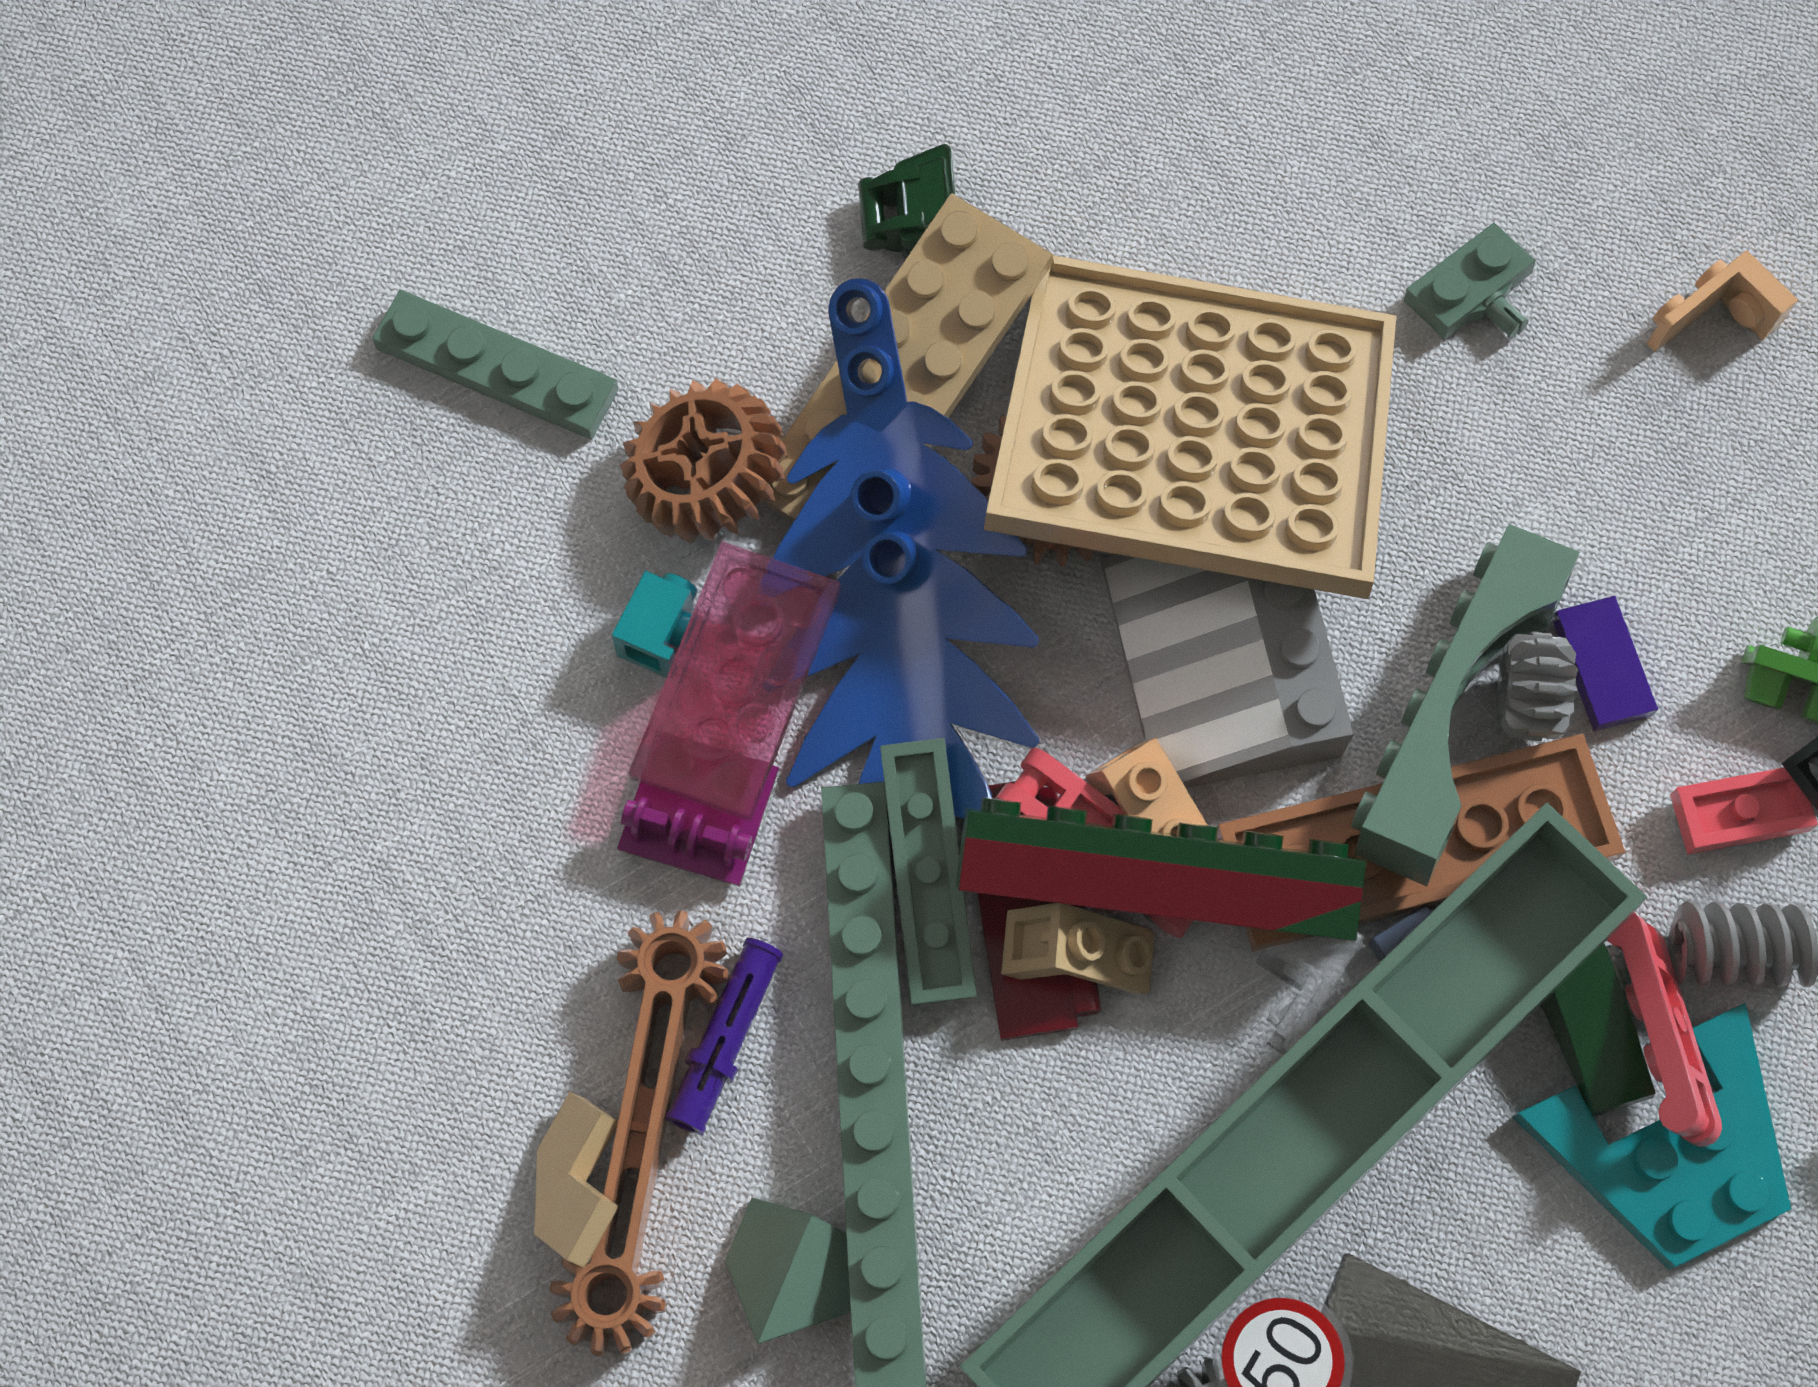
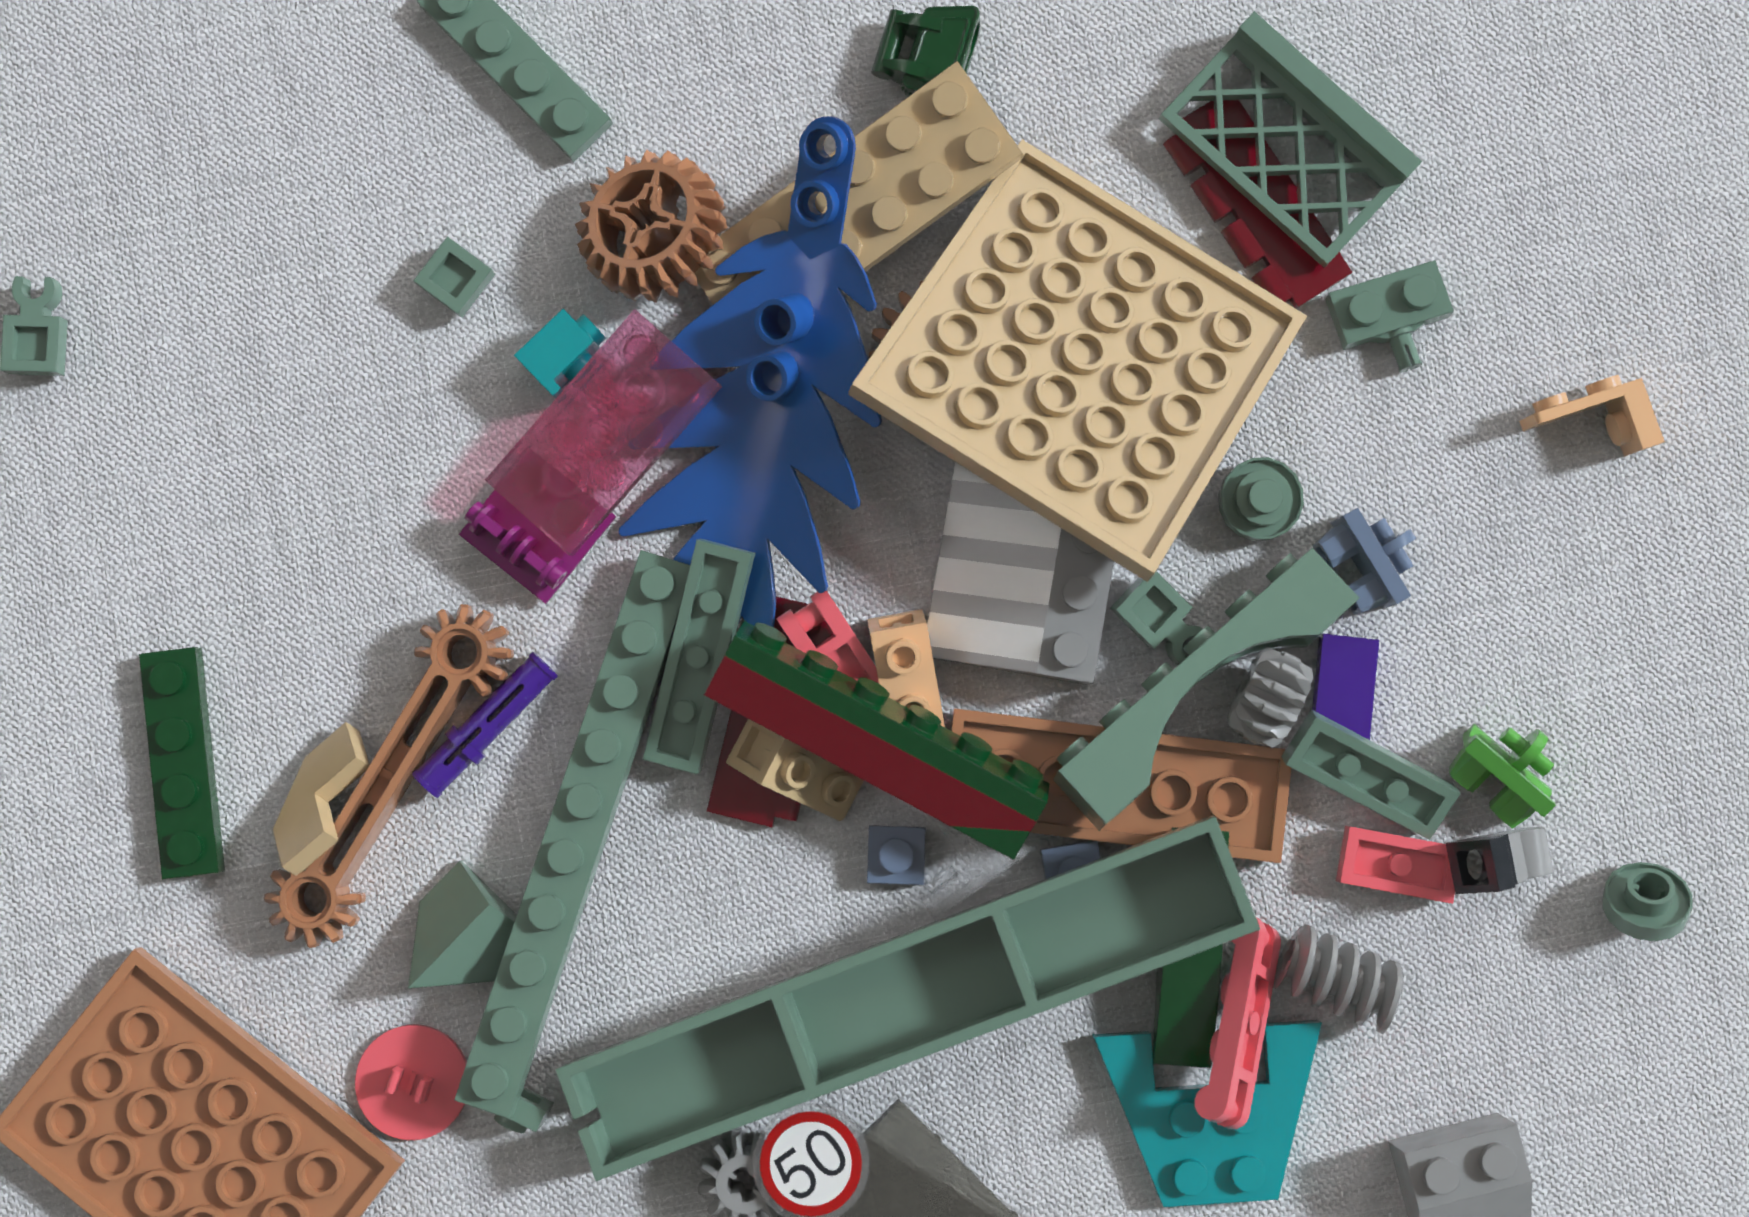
camera: 25 degrees right, 15 degrees up
(79, 814) = (34, 339): none -> sand green plate
(400, 1212) = (181, 762): none -> dark green plate
(513, 589) = (454, 277): none -> sand green plate
(1222, 1005) = (896, 855): none -> sand blue plate
(1311, 237) = (1253, 236): none -> dark red windscreen
(1317, 124) = (1322, 105): none -> sand green fence
(1380, 653) = (1156, 614): none -> sand green plate
(1432, 504) = (1261, 499): none -> sand green plate
(1569, 516) = (1354, 539): none -> sand blue hips
(1672, 726) = (1370, 774): none -> sand green plate

